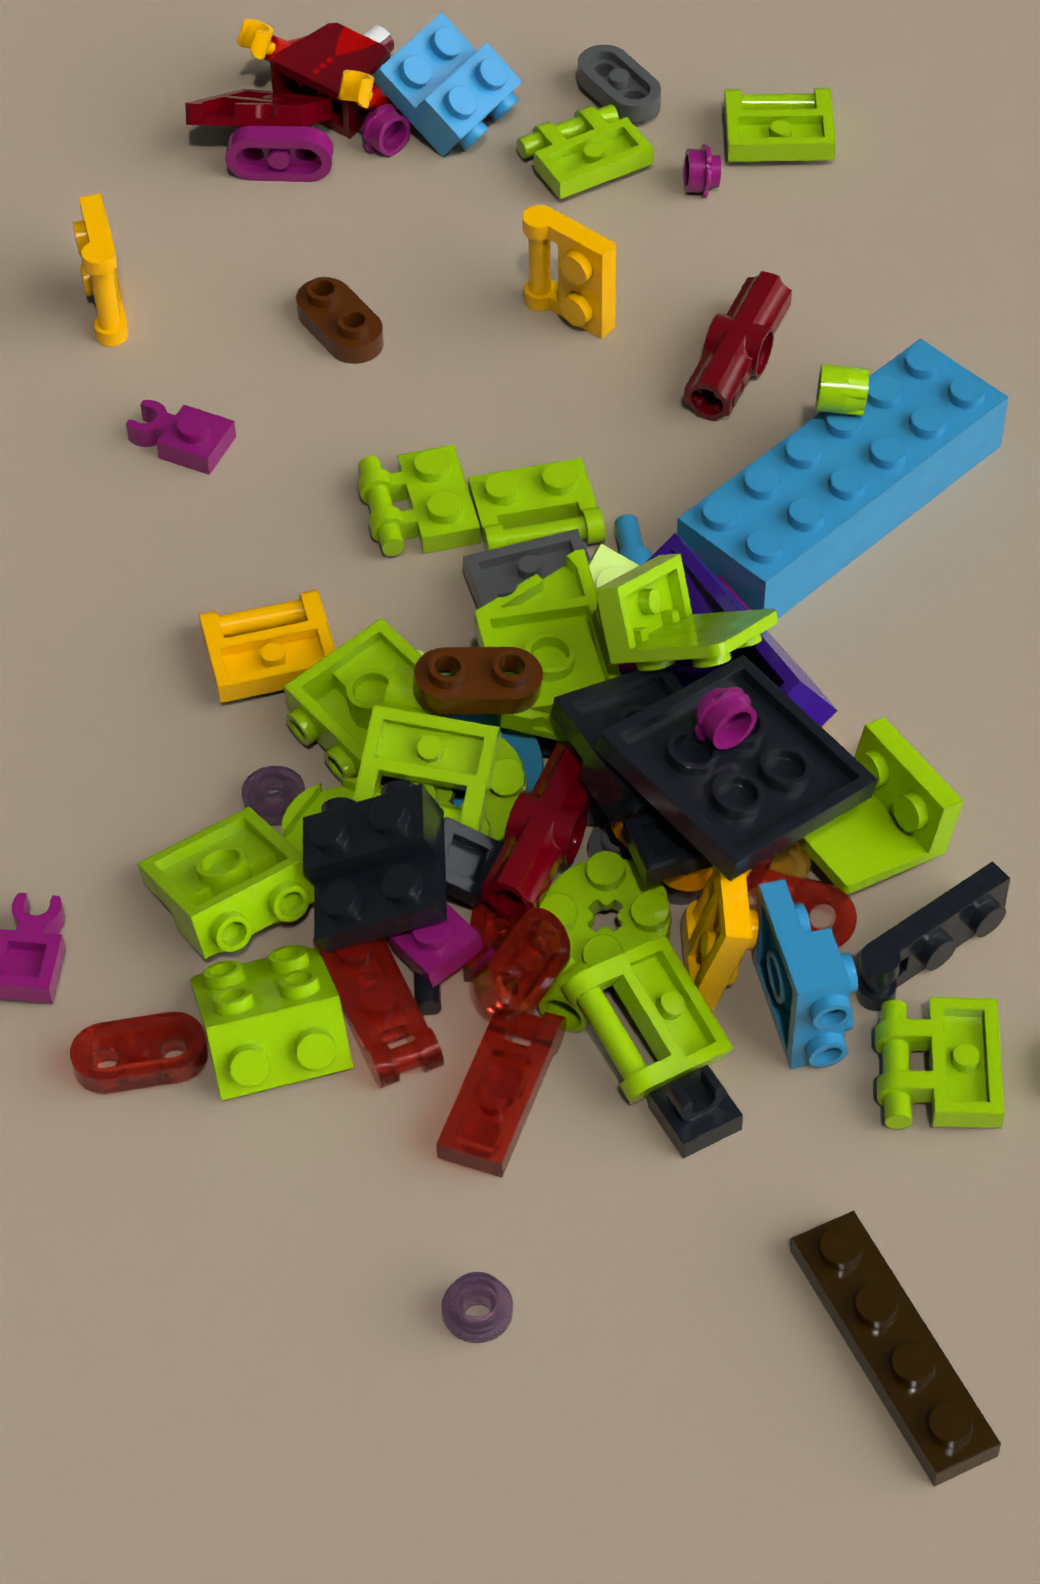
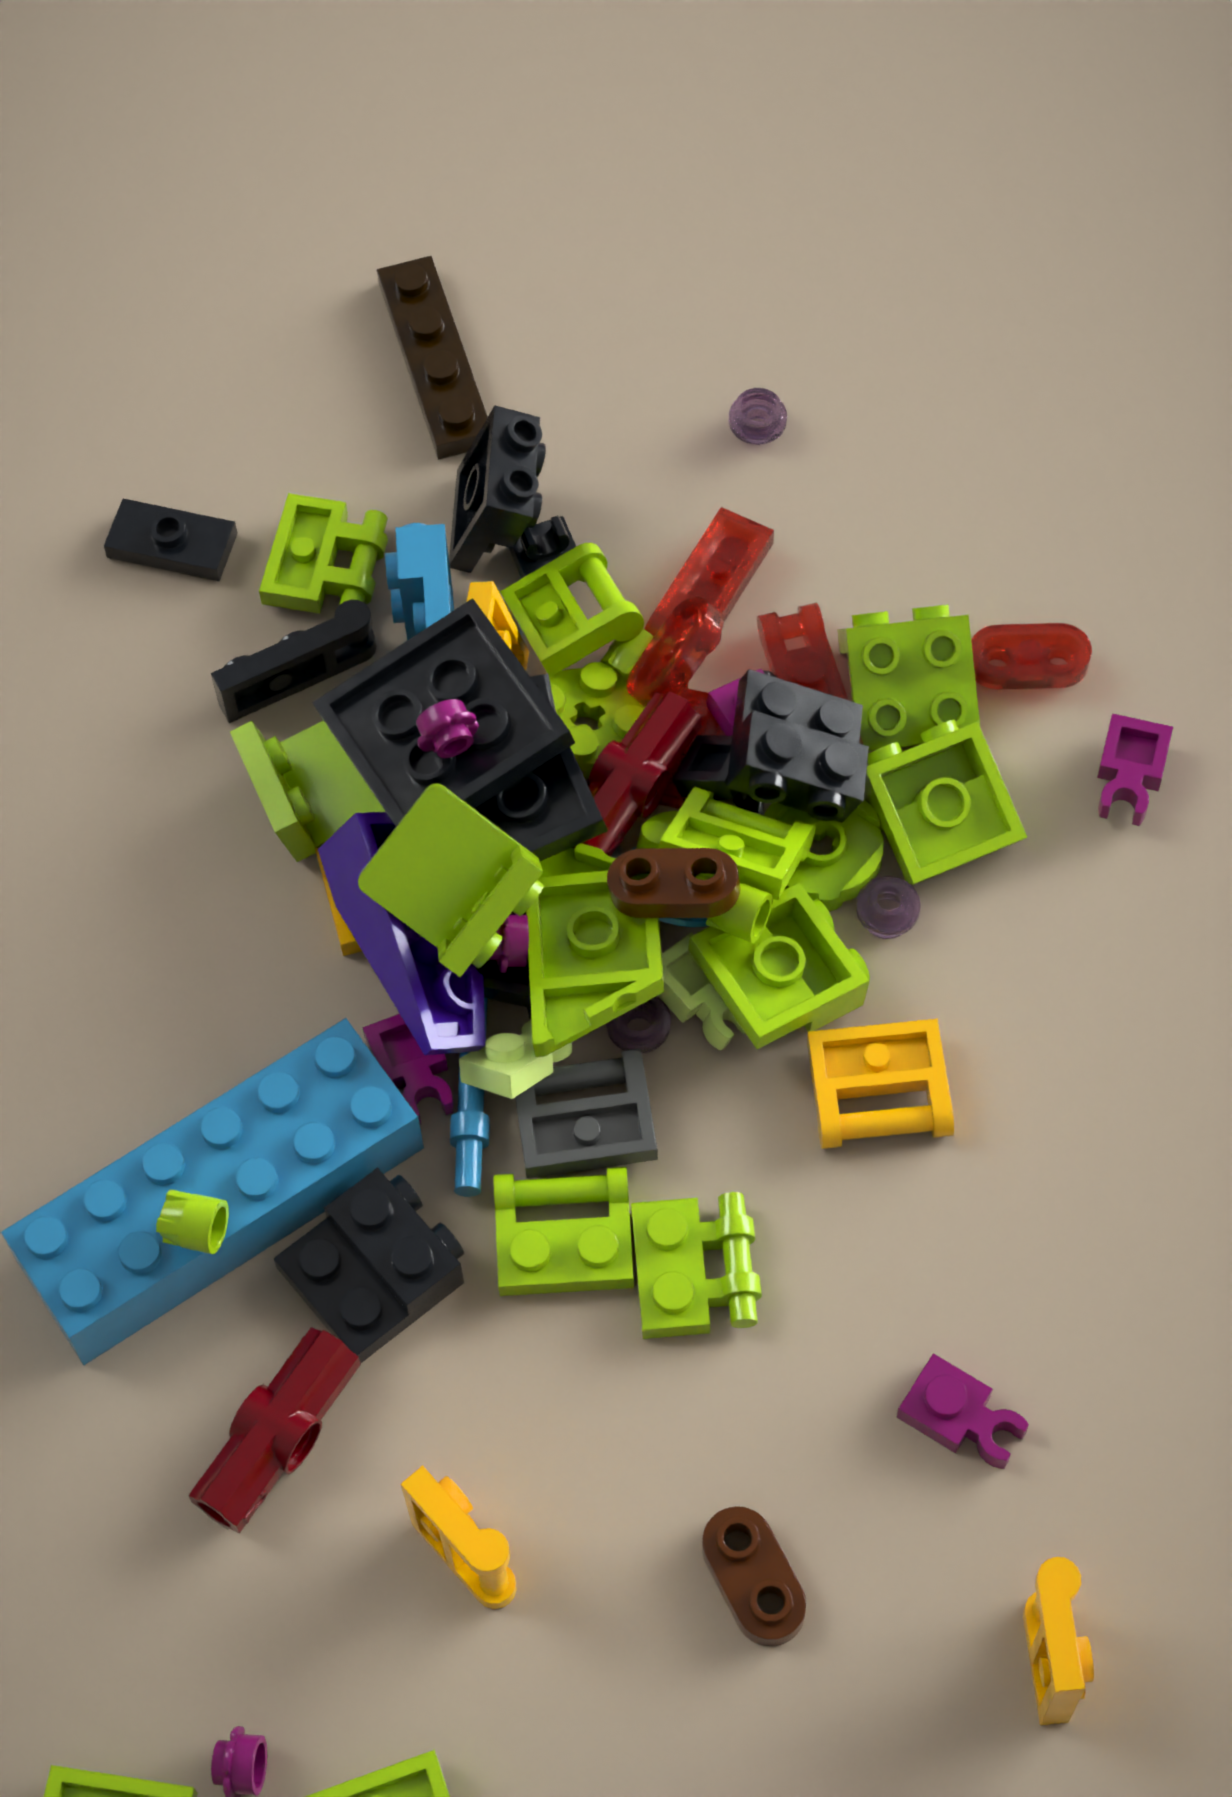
camera: 170 degrees left, 10 degrees up
(683, 457) = (373, 1264): none -> black plate
(760, 1115) = (497, 487): none -> black plate

